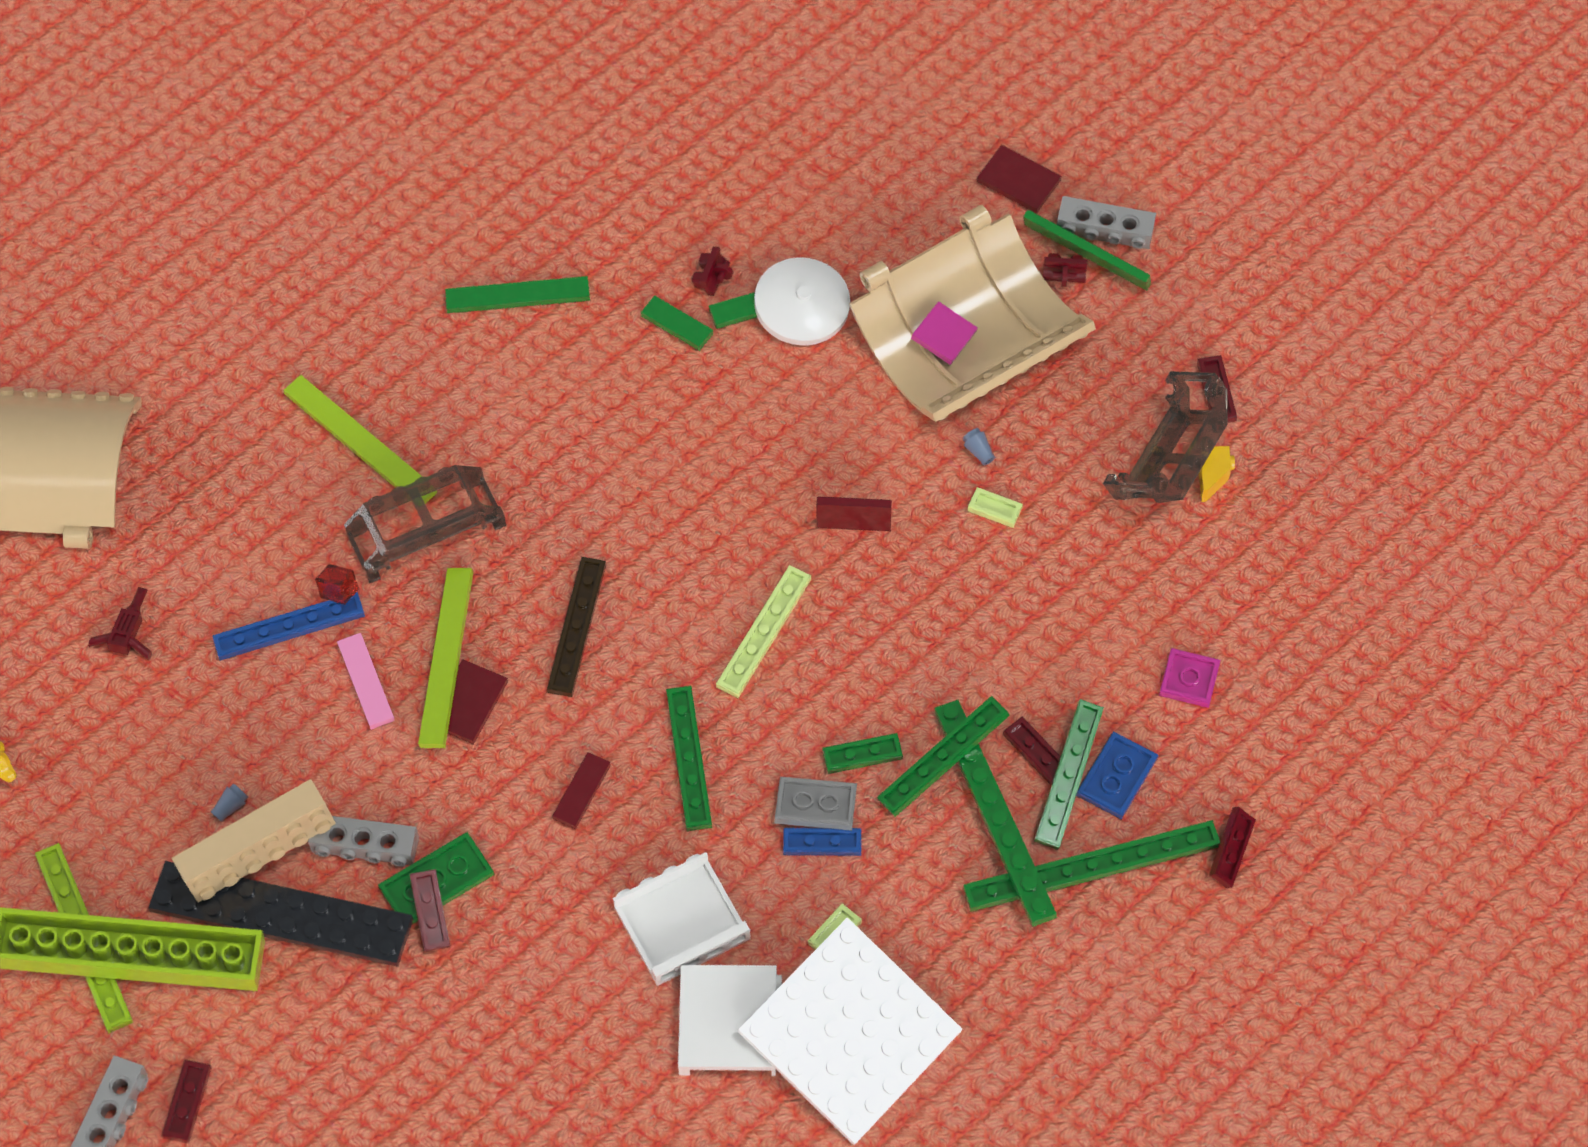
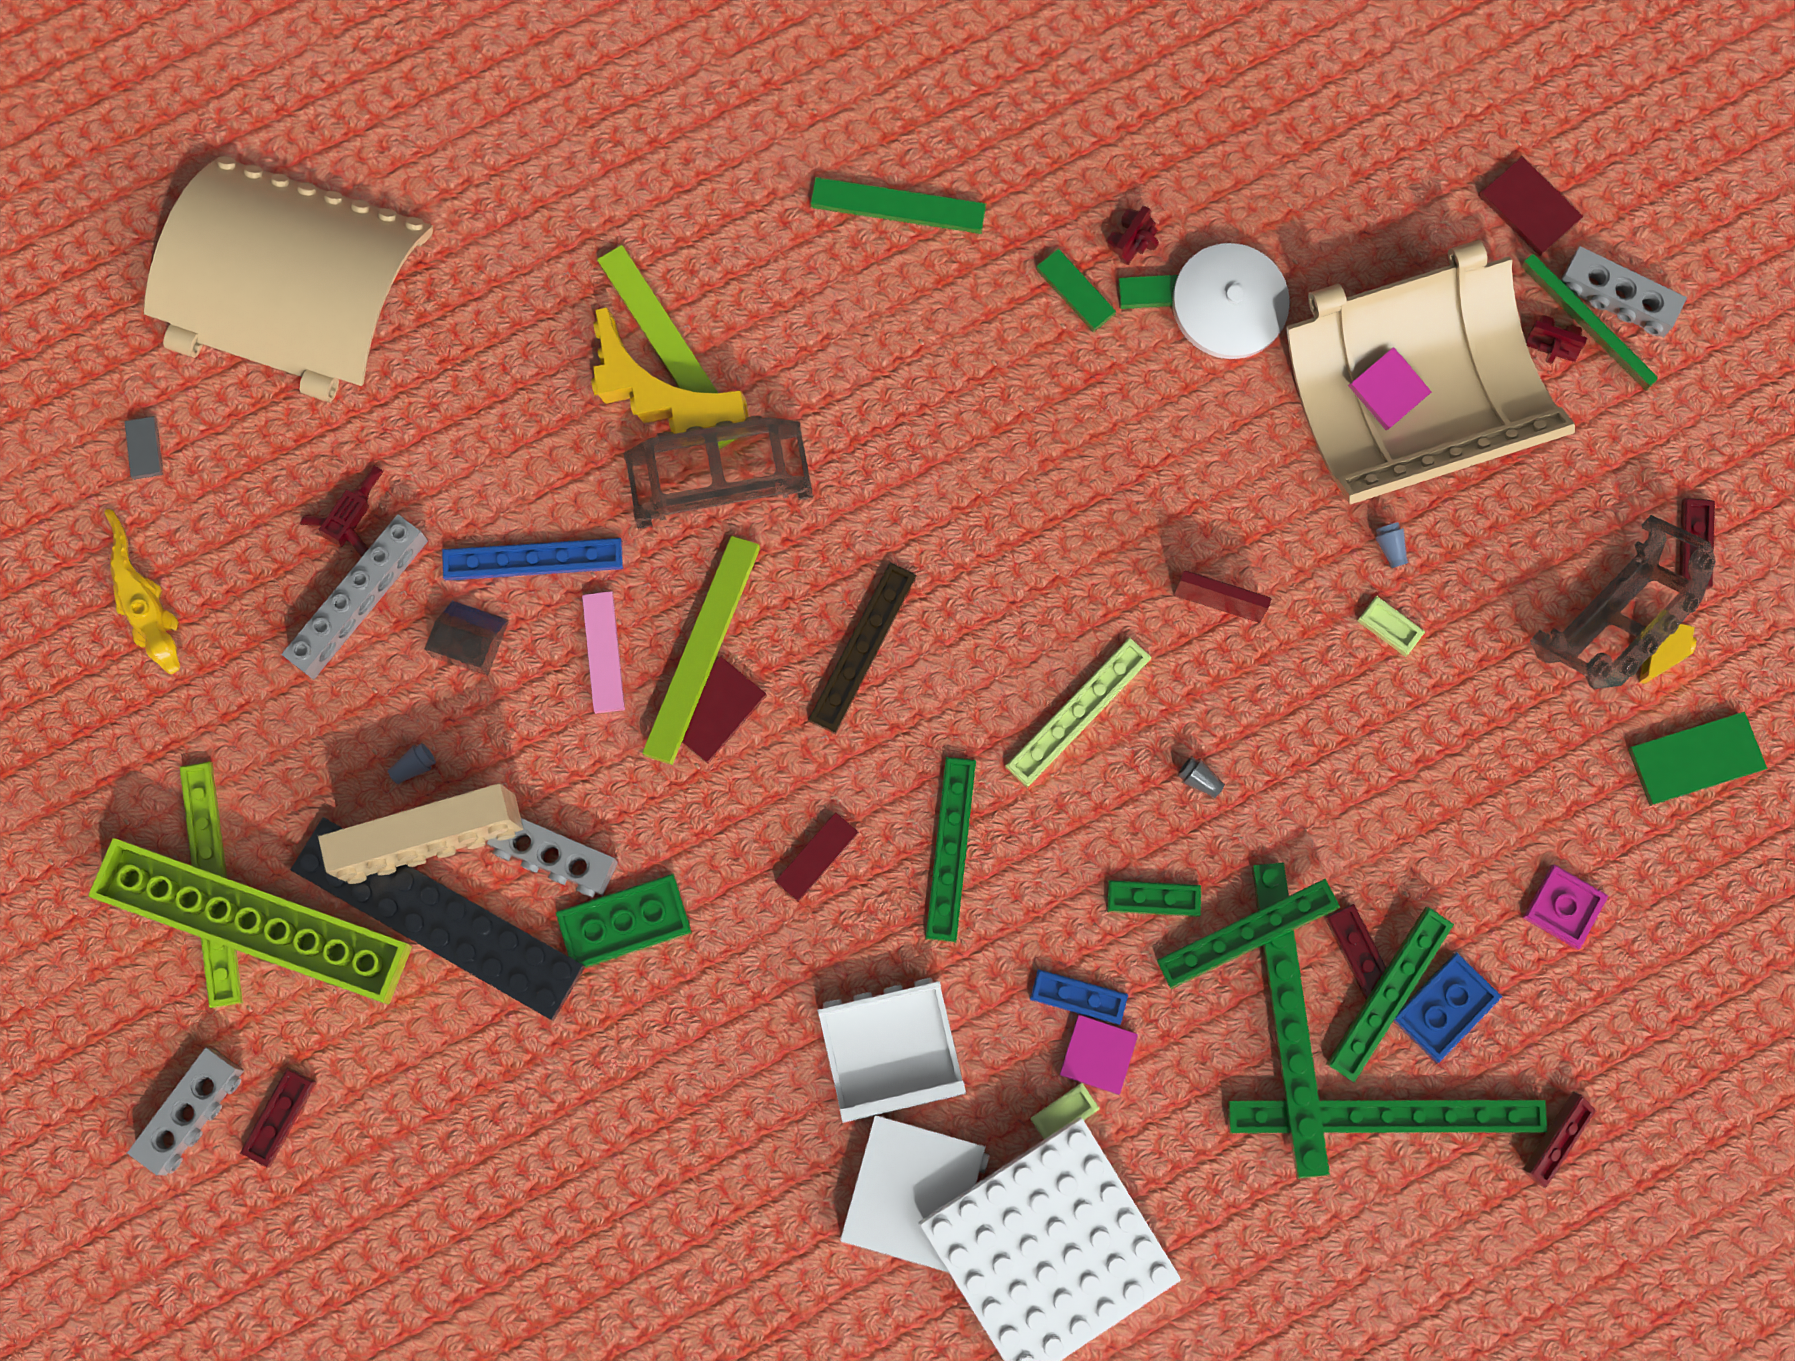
camera: 15 degrees right, 15 degrees up
(149, 687) = (355, 597): none -> light grey brick
(249, 698) = (466, 637): none -> clear smoke slope
(337, 584) = (598, 525): clear red brick -> none
(357, 479) = (651, 398): none -> yellow arch
(429, 910) = (605, 962): dark red tile -> none
(815, 803) = (1083, 949): light grey tile -> none
(850, 880) = (1098, 1054): none -> dark pink tile
(874, 653) = (1199, 776): none -> dark grey cone
(1261, 544) = (1697, 758): none -> green tile

